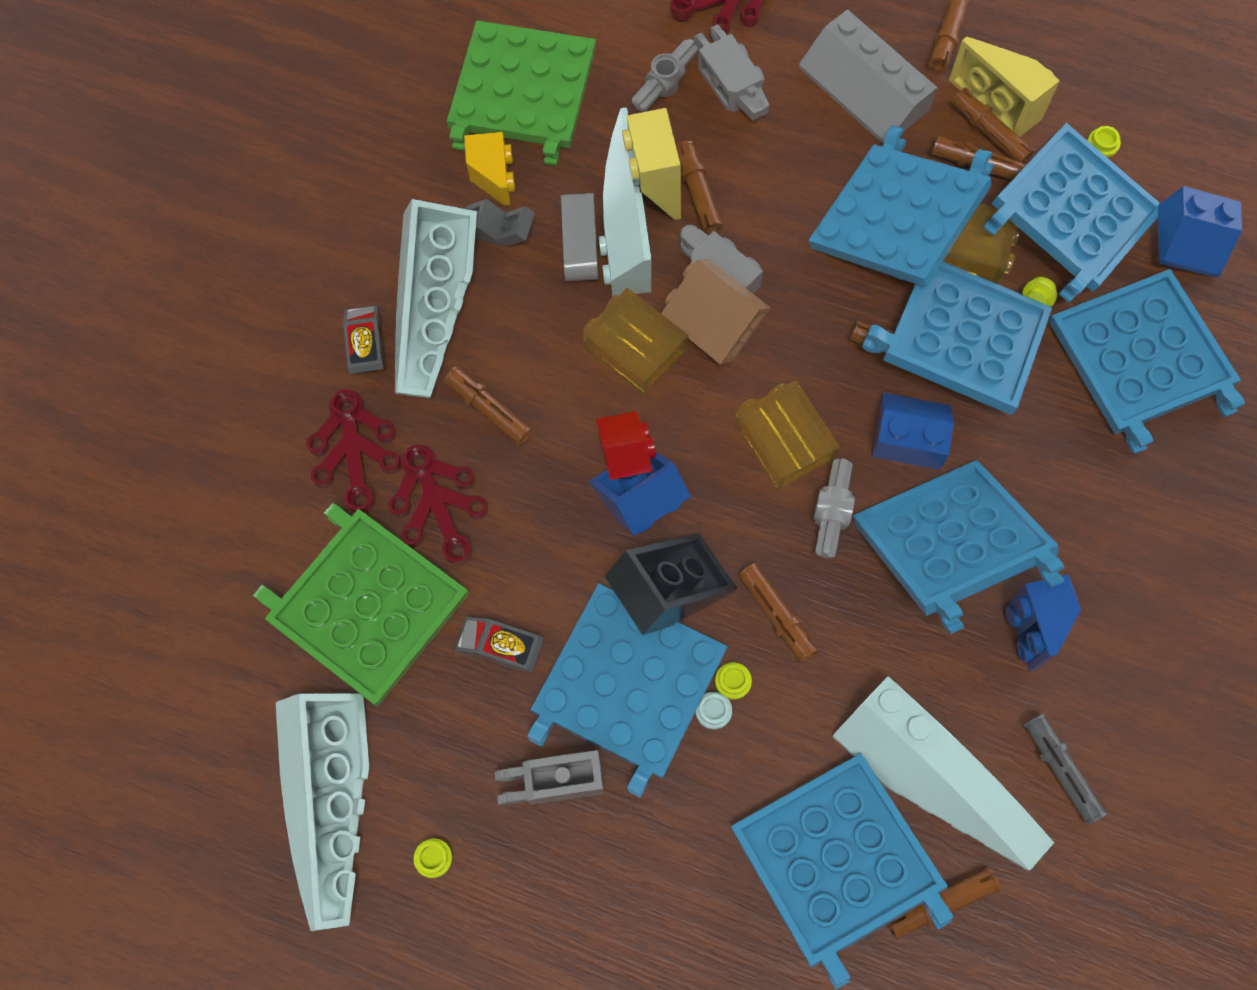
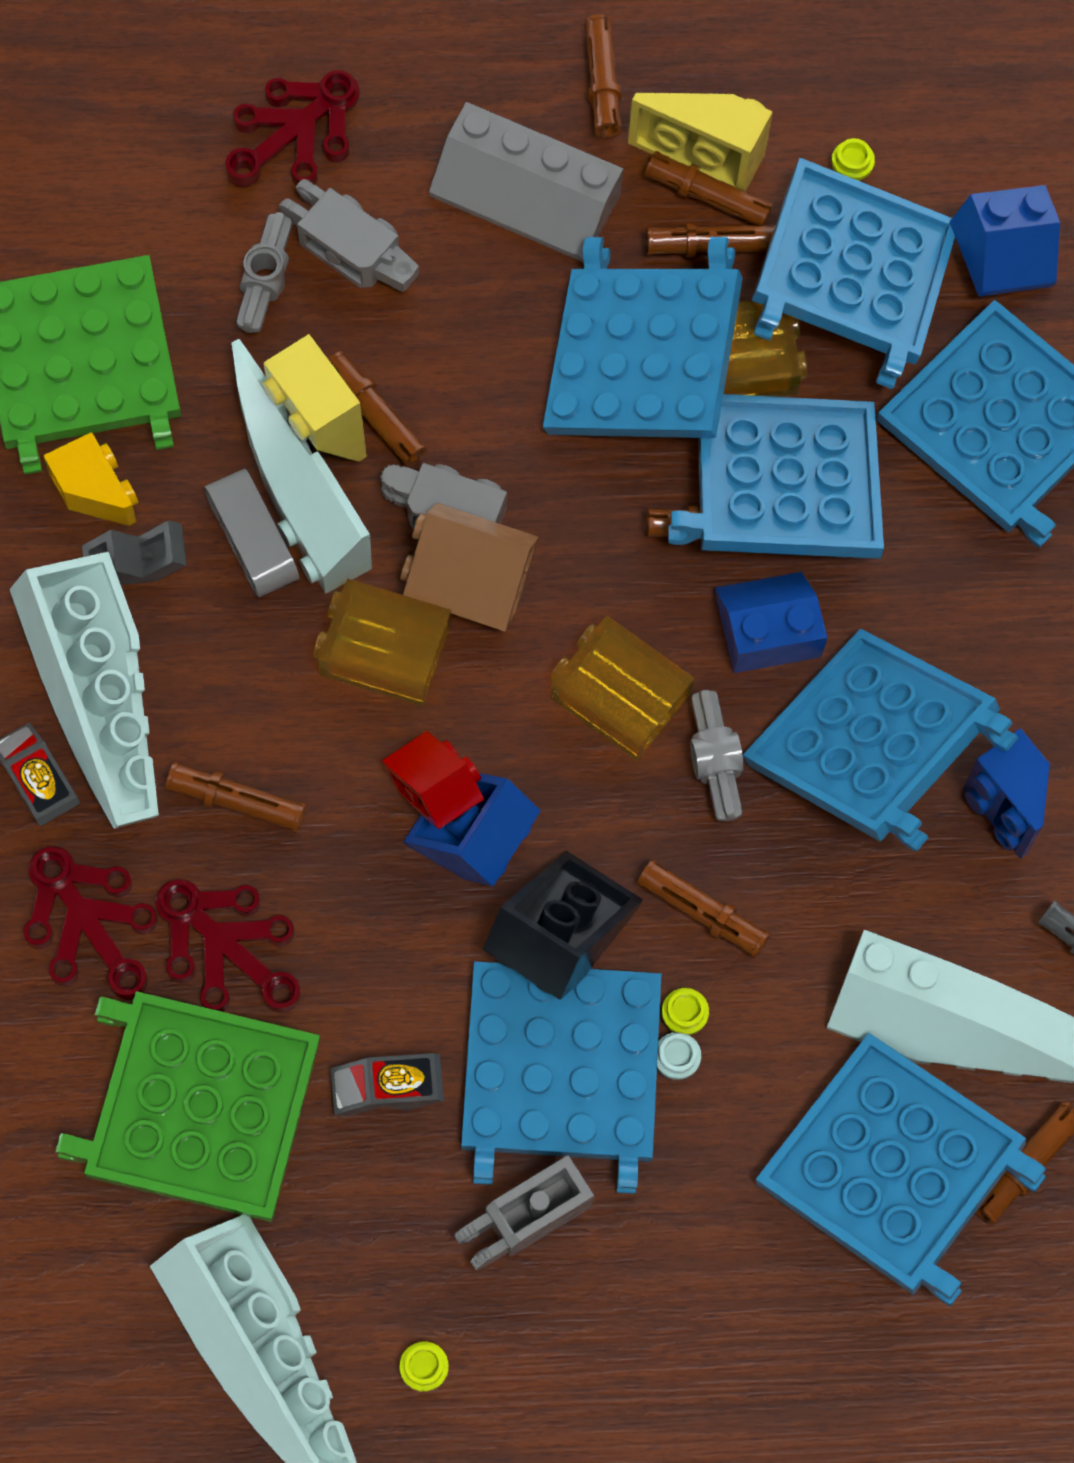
camera: 30 degrees left, 0 degrees up
(1041, 290) = (853, 385): neon yellow plate -> none

